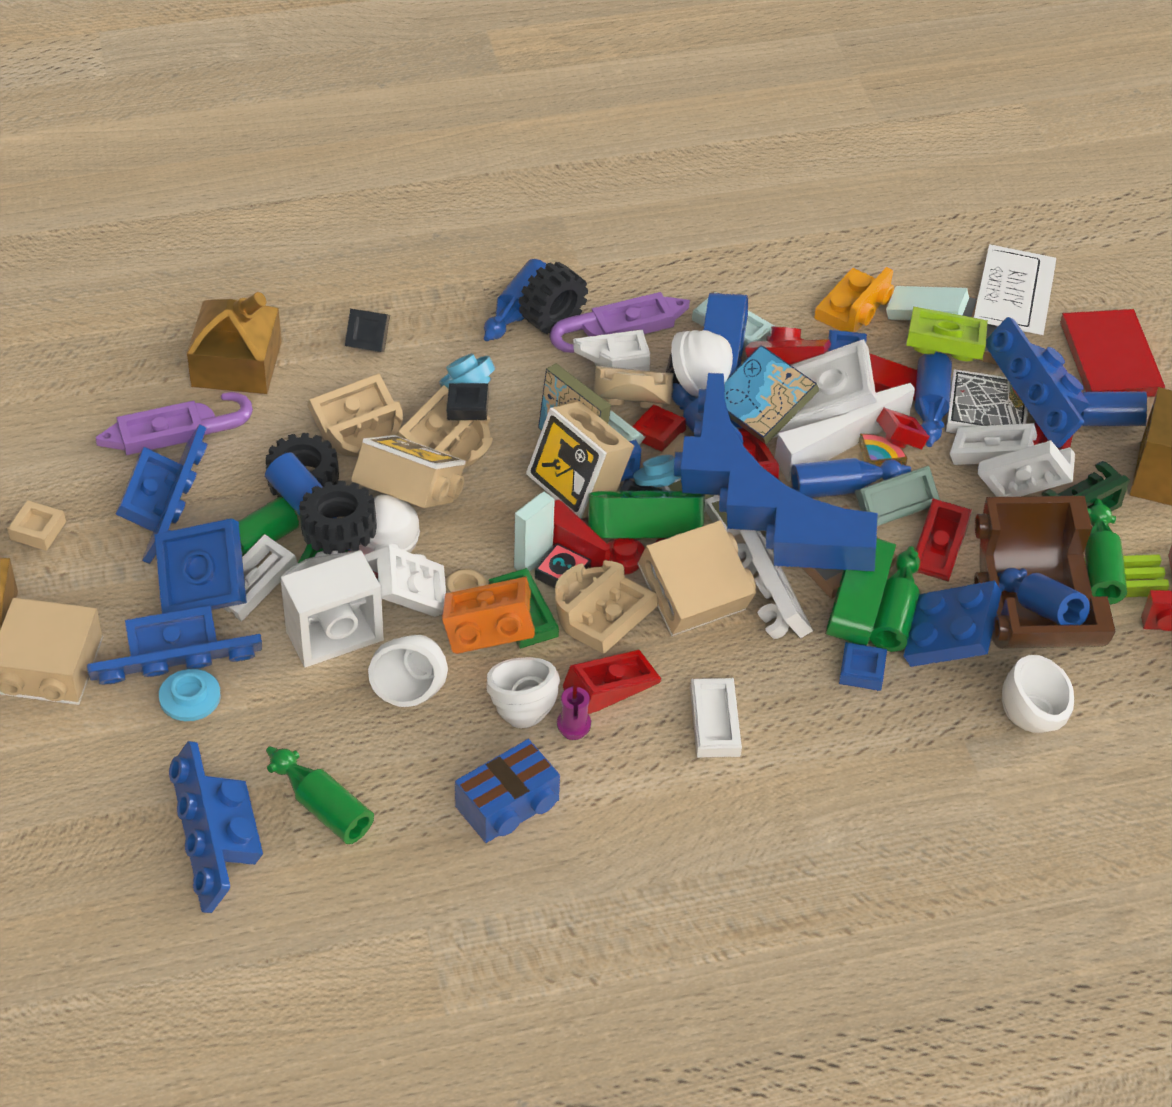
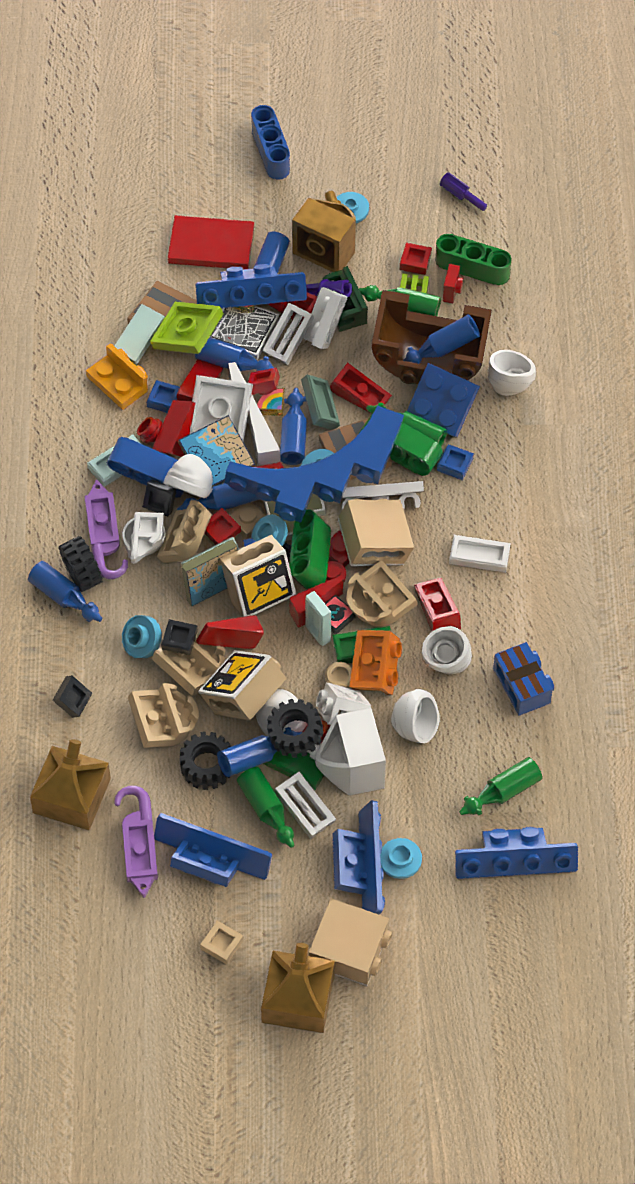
camera: 75 degrees left, 10 degrees up
(200, 566) = (304, 830): blue plate -> none
(494, 456) = (234, 633): none -> red slope
(574, 718) = (471, 627): magenta pin -> none
(1016, 287) = (133, 278): white sticker -> none
(1085, 470) = (339, 286): none -> dark purple axle

